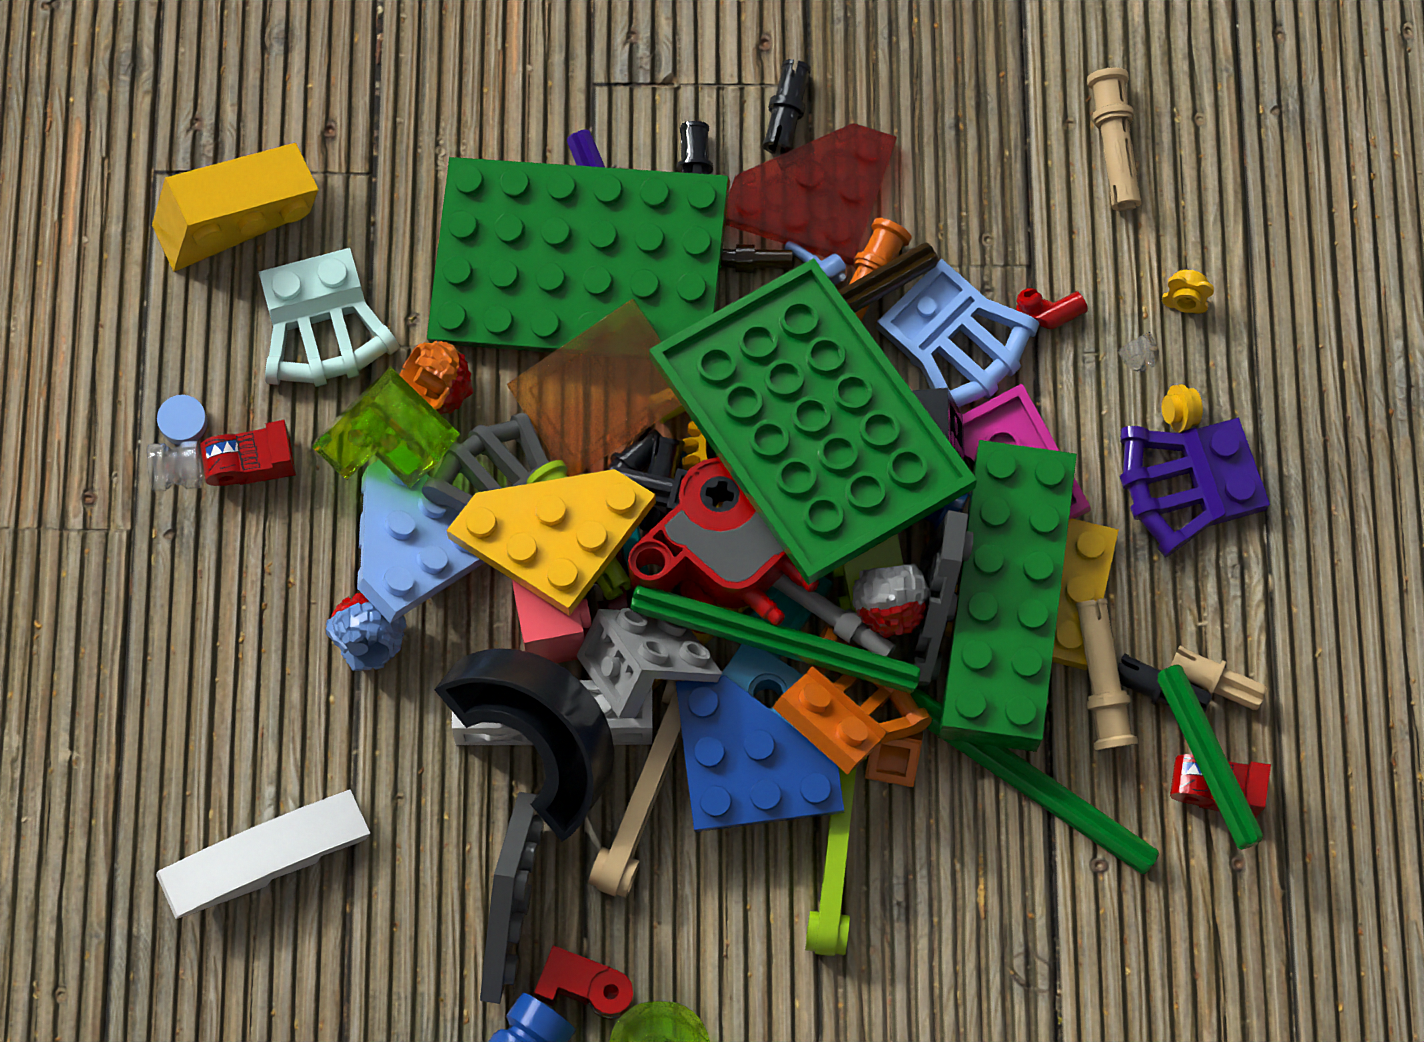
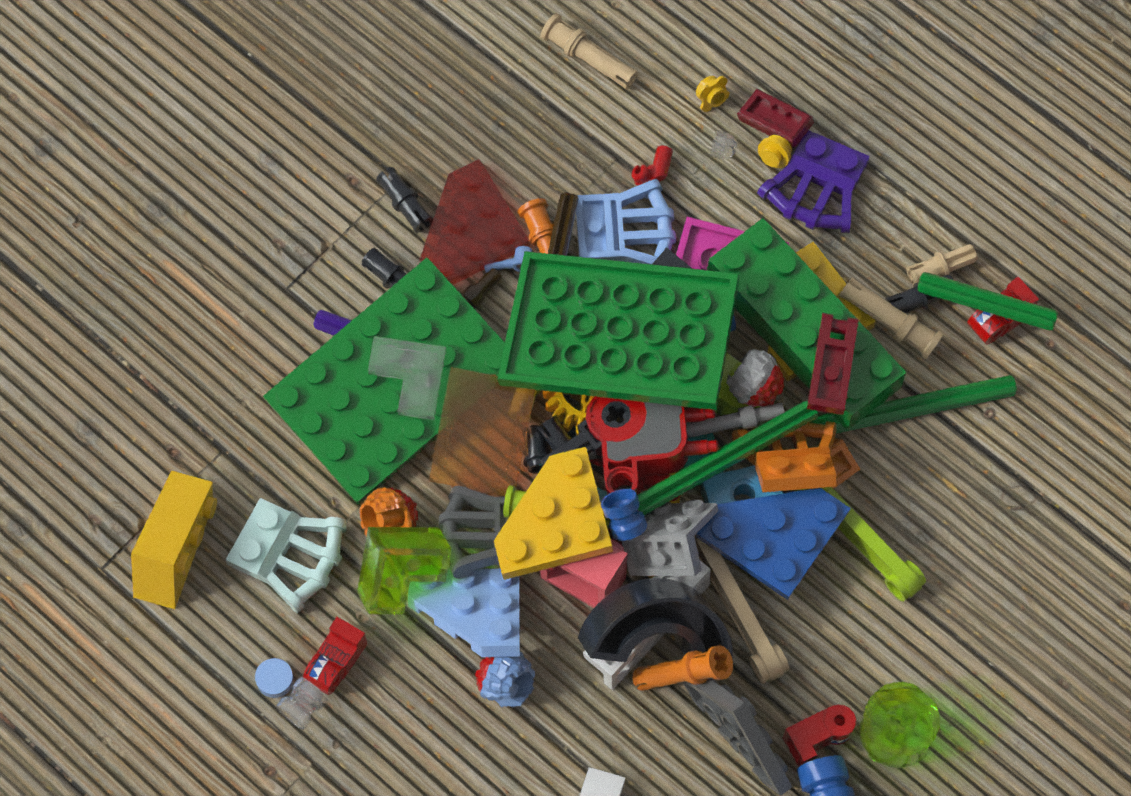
camera: 45 degrees left, 5 degrees down
(524, 798) = (692, 668): none -> orange pin
(605, 269) = (418, 366): none -> clear plate
(612, 597) = (625, 518): none -> blue wheel
(940, 566) = (762, 330): dark grey plate -> none
(972, 657) = (832, 365): none -> dark red plate
(1220, 377) = (775, 117): none -> dark red plate

